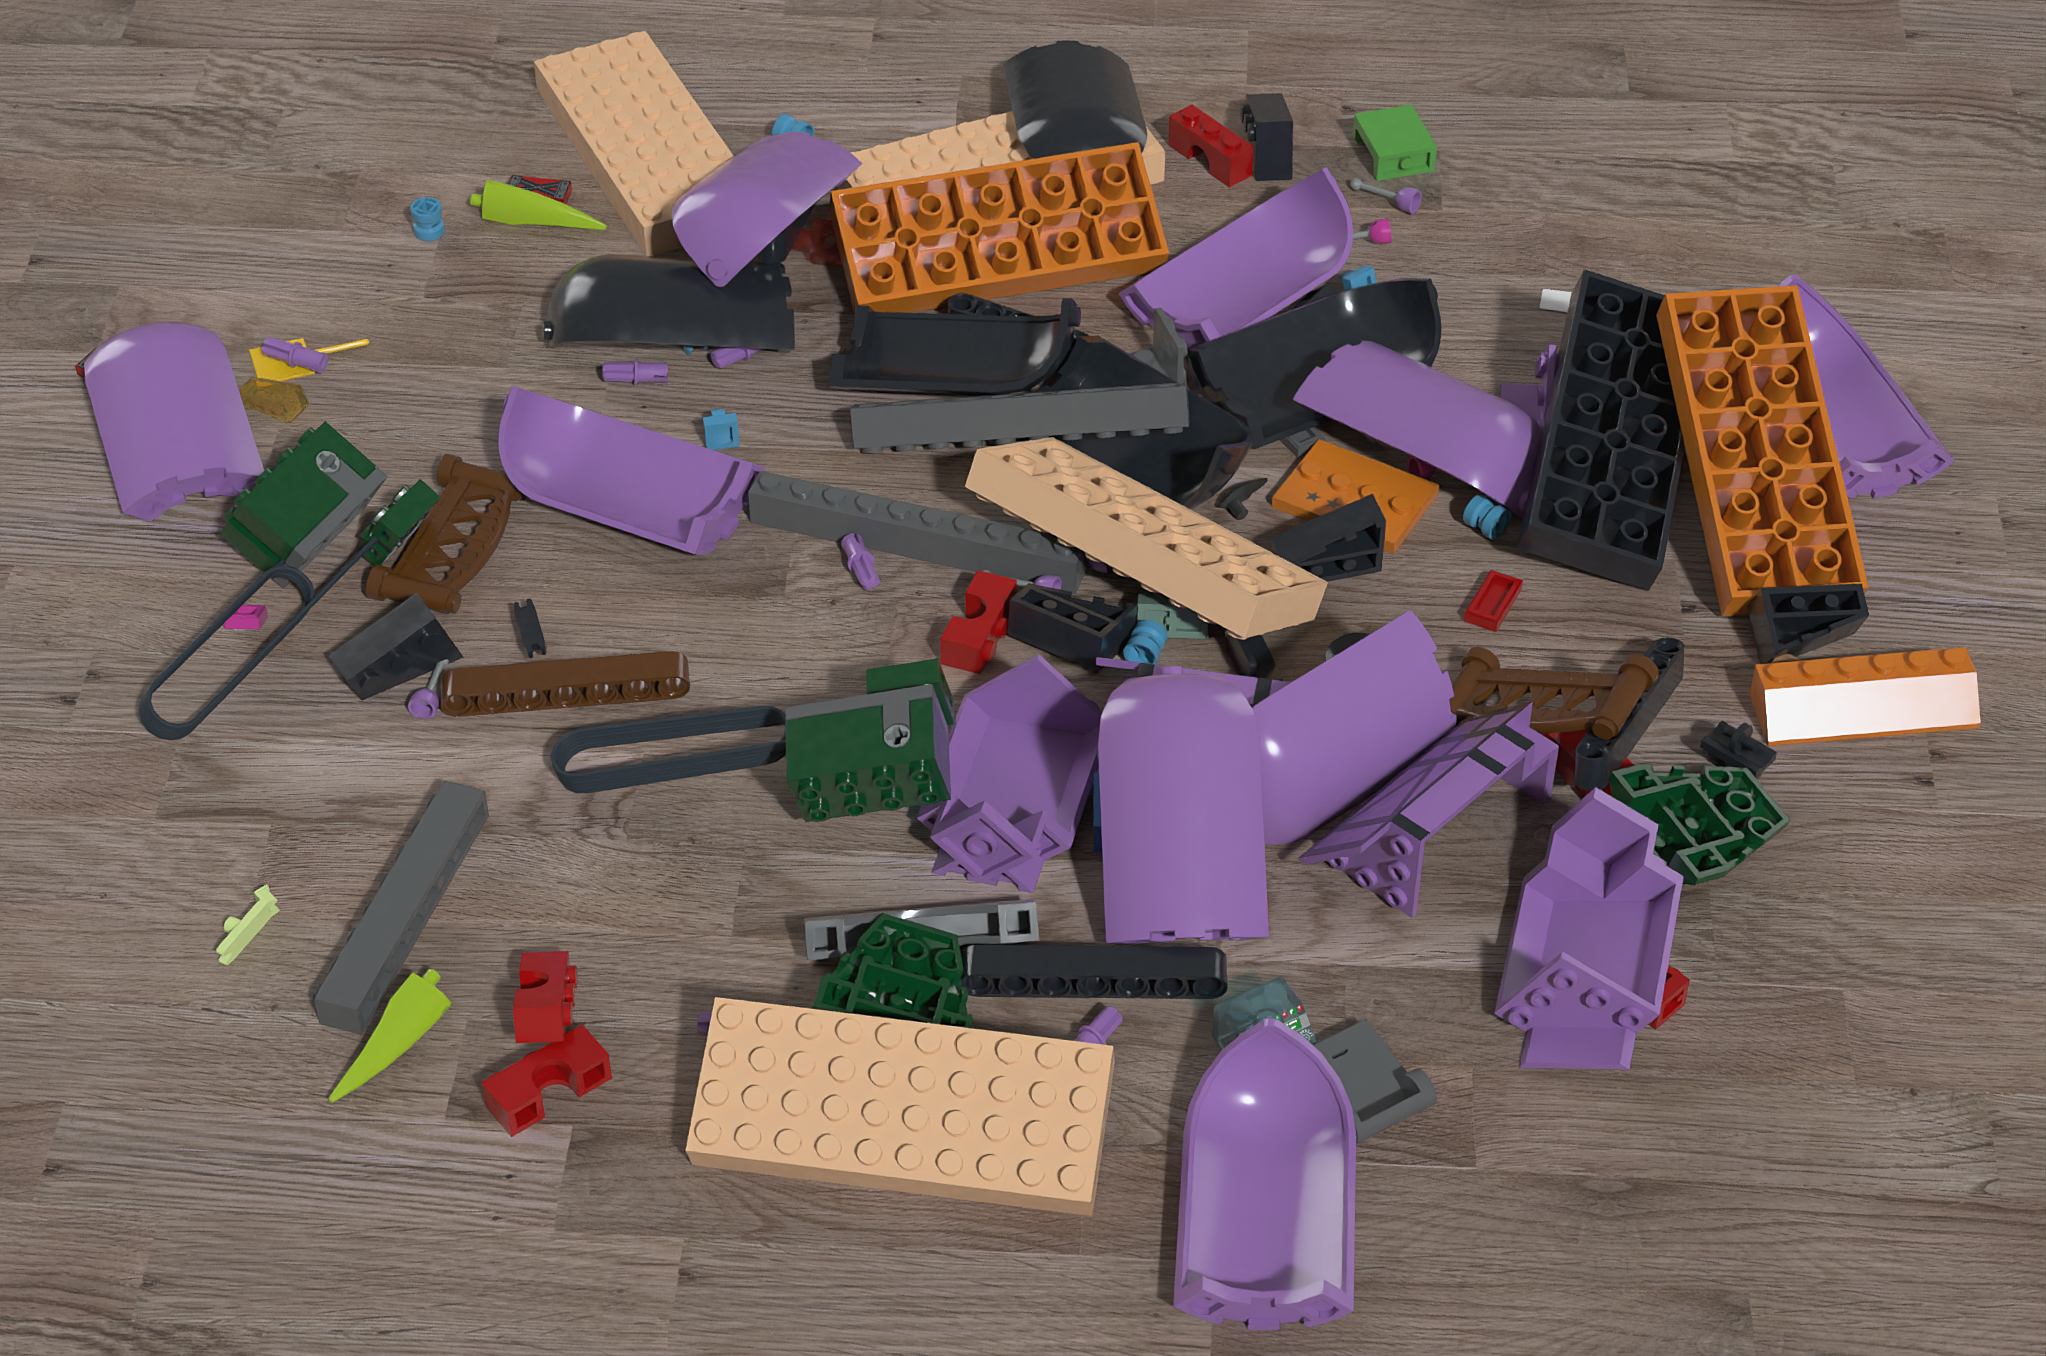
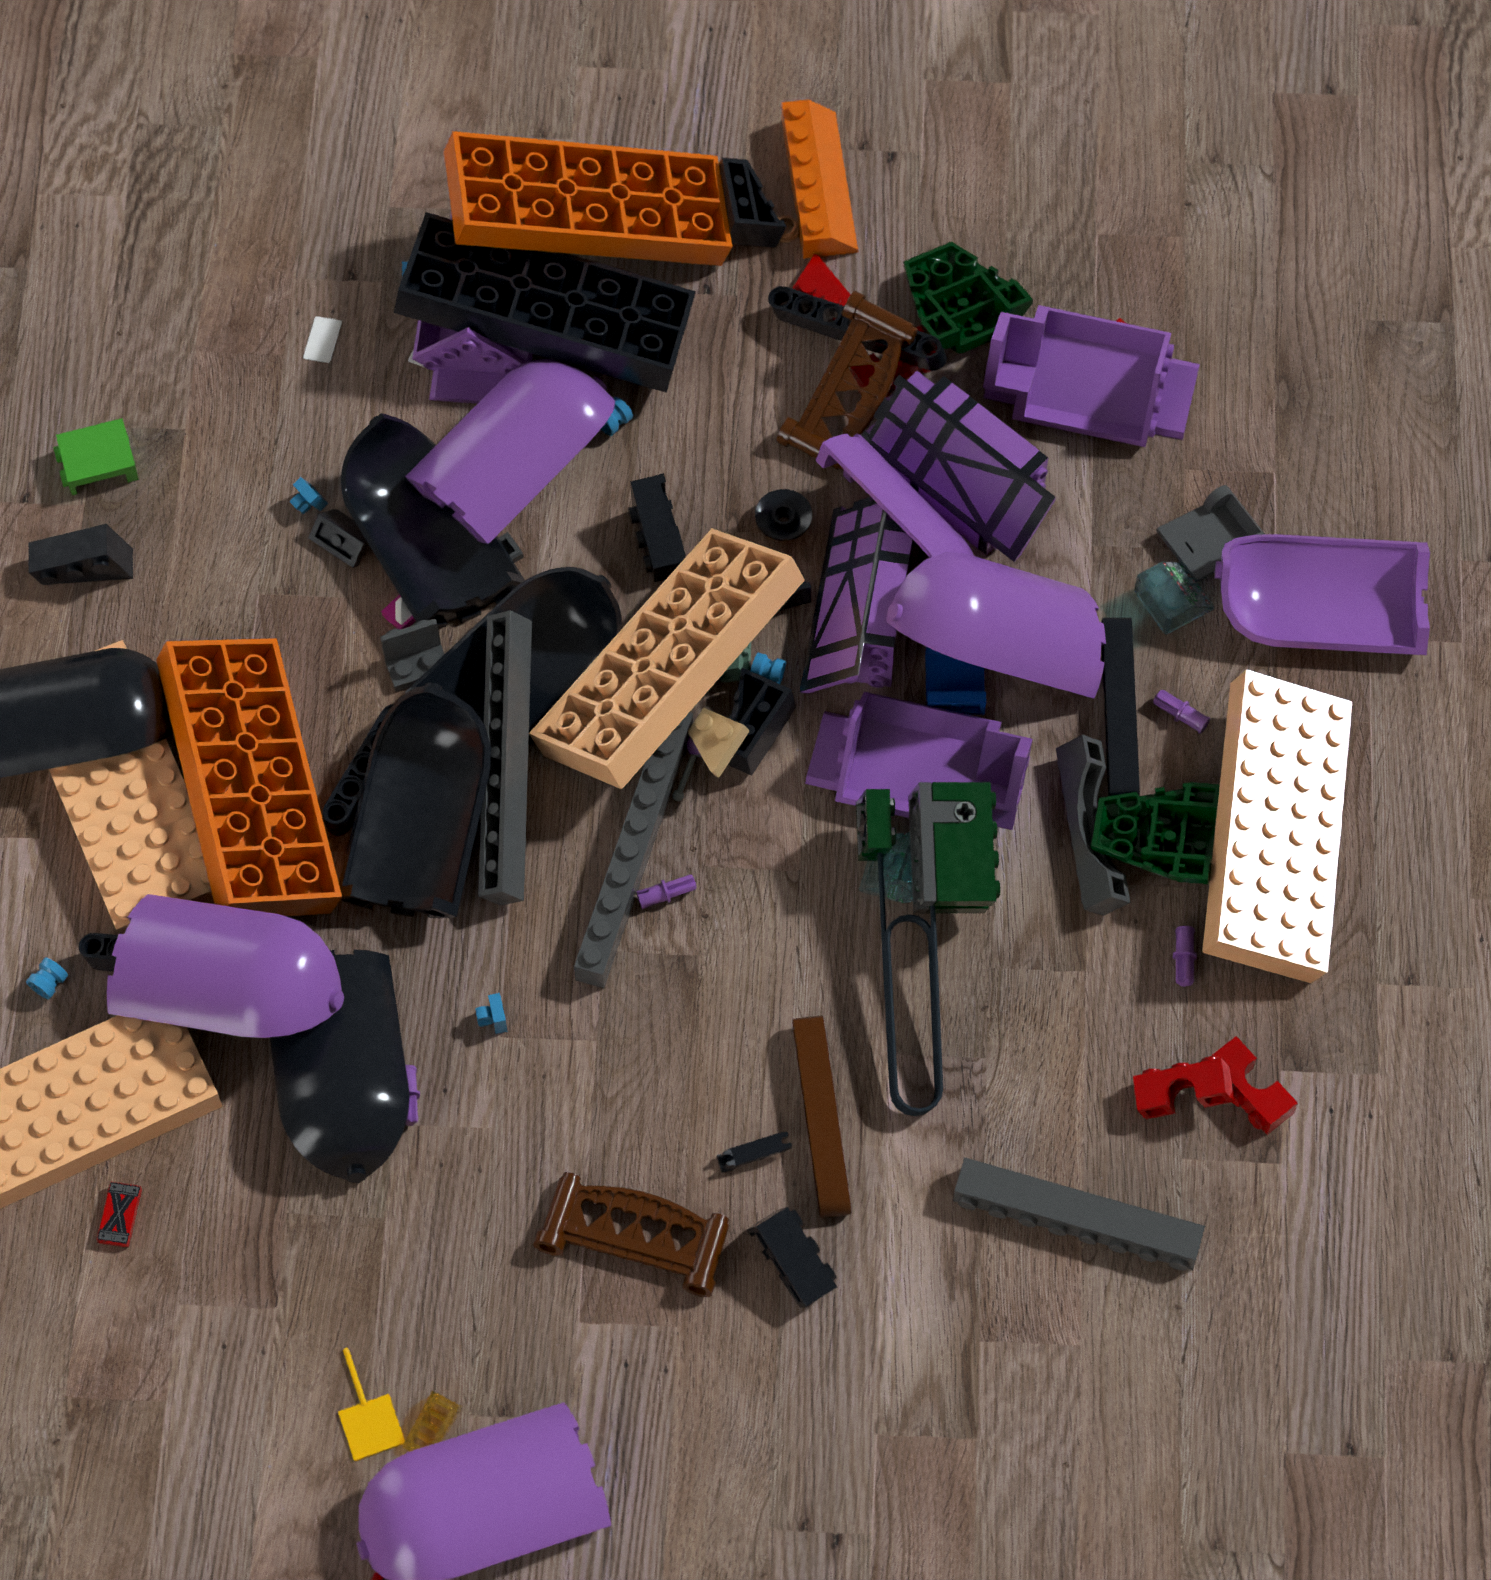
camera: 90 degrees left, 20 degrees up
(244, 930) = (1105, 1338): yellowish green piece -> none
(247, 618) = (740, 1396): dark pink tile -> none
(288, 523) = (647, 1356): piece -> none
(295, 354) = (377, 1407): medium lavender axle -> none
(406, 1019) = (1199, 1201): lime piece -> none
(426, 698) = (839, 1230): medium lavender hinge -> none
(427, 219) = (171, 1317): dark azure wheel -> none
(523, 207) = (153, 1218): lime piece -> none
(622, 473) = (570, 1079): medium lavender panel -> none
(973, 641) = (768, 796): red arch -> none
(1036, 576) = (716, 739): none -> tan wing
(1196, 132) = (77, 618): red arch -> none
(1251, 264) = (295, 579): medium lavender panel -> none
(1336, 476) = (576, 514): orange plate -> none
(1378, 232) = (227, 477): dark pink hinge -> none
(1406, 199) = (179, 453): medium lavender hinge -> none
(1493, 600) = (704, 421): red tile -> none
(1701, 704) = (821, 282): none -> red wing
(1737, 748) = (880, 266): black hips -> none
(1873, 423) = (416, 150): medium lavender panel -> none

